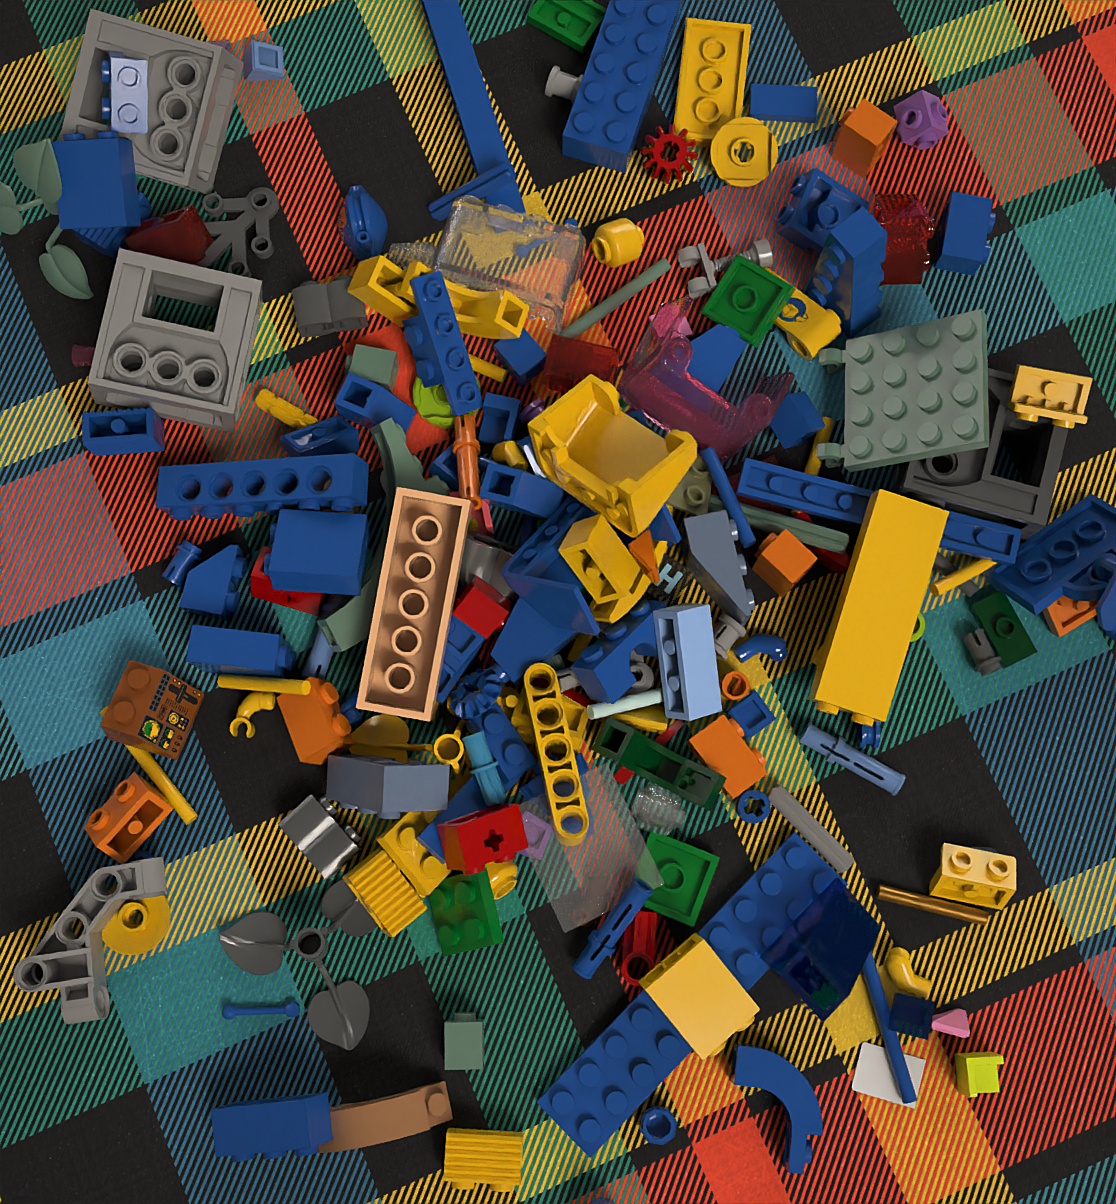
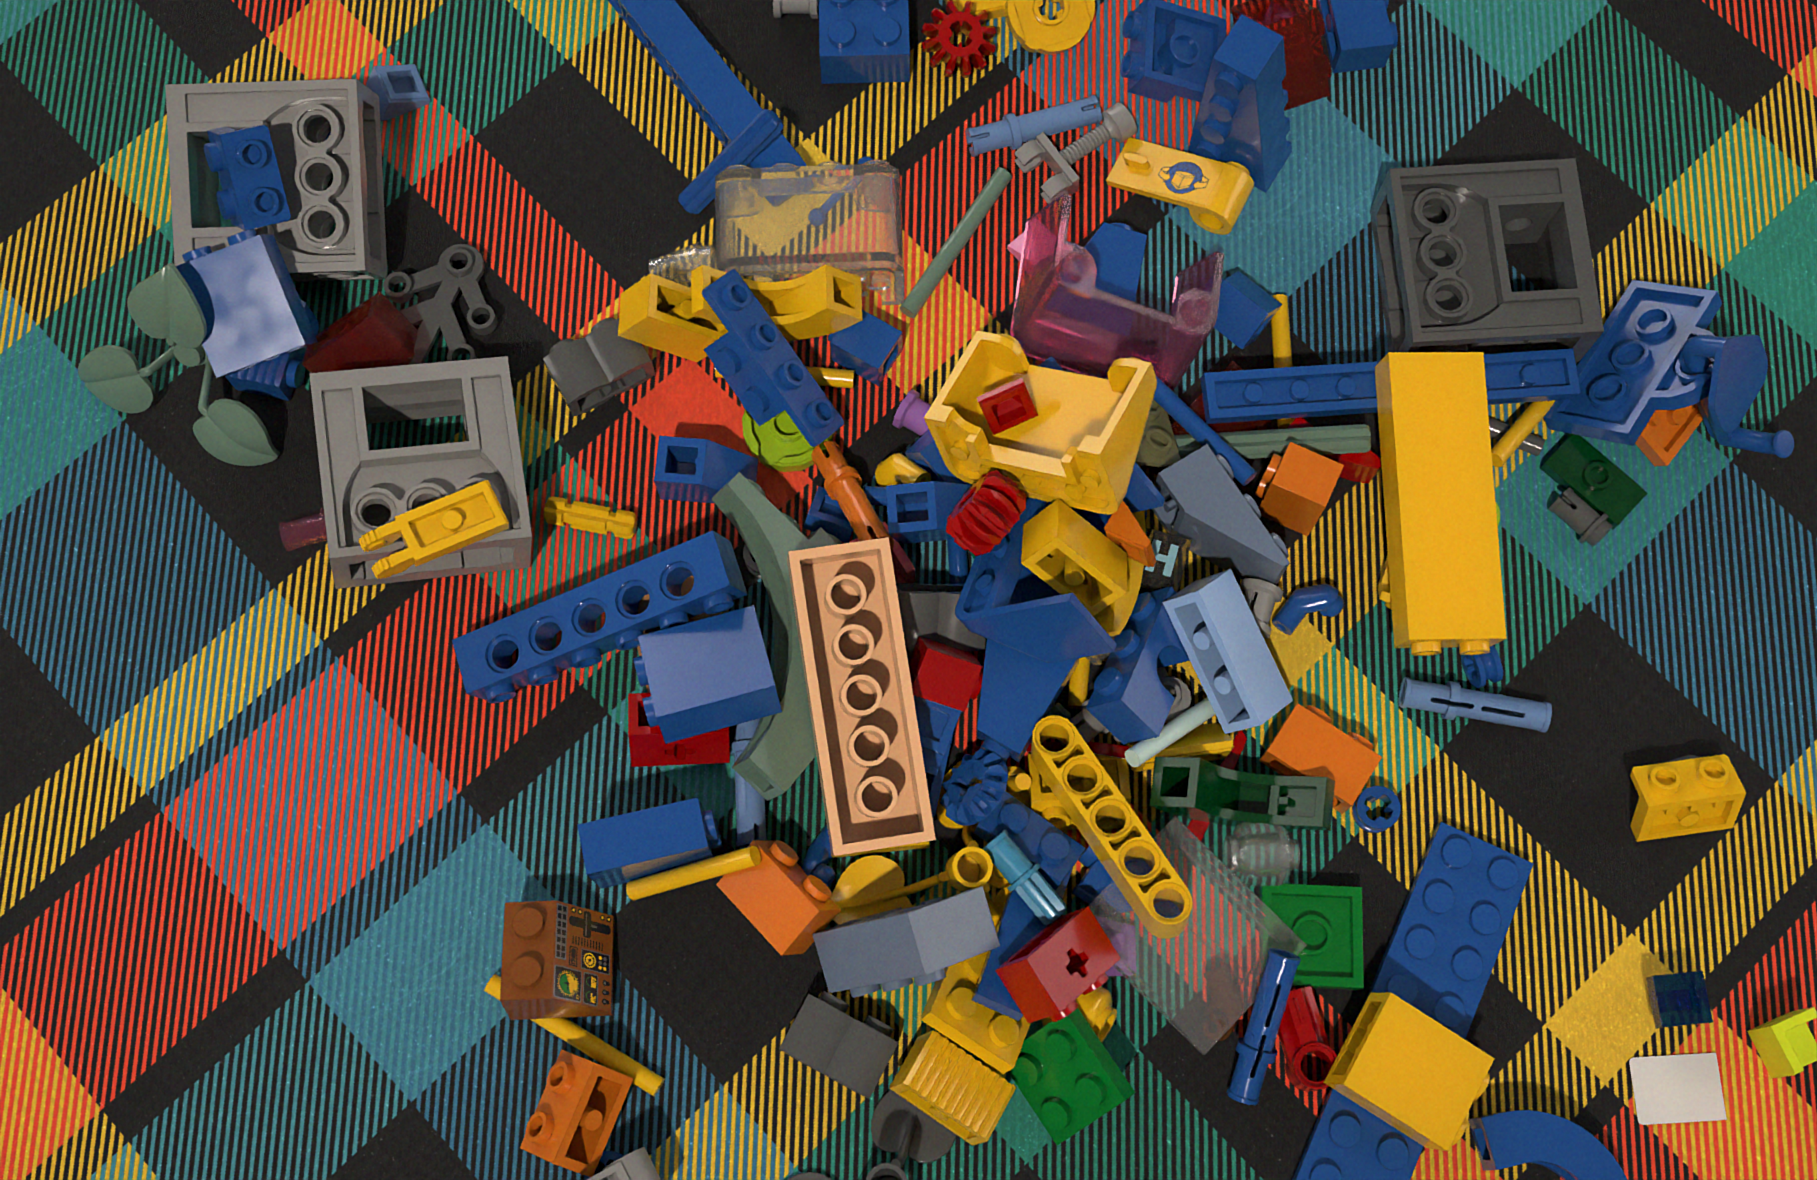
camera: 20 degrees left, 5 degrees down
(123, 431) = (386, 612): blue brick -> none
(167, 387) = (437, 528): none -> yellow hinge
(182, 563) = (524, 755): blue pin -> none
(213, 584) = (576, 770): blue slope -> none
(253, 702) = (683, 905): yellow arm -> none
(322, 438) = (651, 532): blue slope -> none
(362, 224) = (600, 250): blue hat -> none
(374, 365) = (682, 417): sand green brick -> none
(499, 419) = (868, 433): blue panel -> none
(548, 506) = (986, 513): none -> red gear
(573, 360) = (941, 330): clear red brick -> none
(590, 435) = (1007, 406): none -> red slope
(618, 242) = (935, 167): yellow head -> none
(685, 234) = (1015, 130): none -> medium blue pin
(739, 688) = (1300, 664): orange hinge -> none
(748, 300) = (1125, 183): green plate -> none
(751, 714) = (1328, 692): blue tile -> none
(810, 828) = (1458, 811): light grey axle -> none
(824, 950) = (1538, 958): clear blue slope -> none
(889, 1037) = (1660, 1038): blue bar -> none
(902, 973) = (1645, 953): yellow arm -> none
(912, 393) = (1377, 226): sand green plate -> none
(932, 904) = (1645, 852): pearl gold bar -> none
(952, 1022) = (1733, 991): bright pink slope -> none
(1049, 395) = (1547, 170): yellow bracket -> none

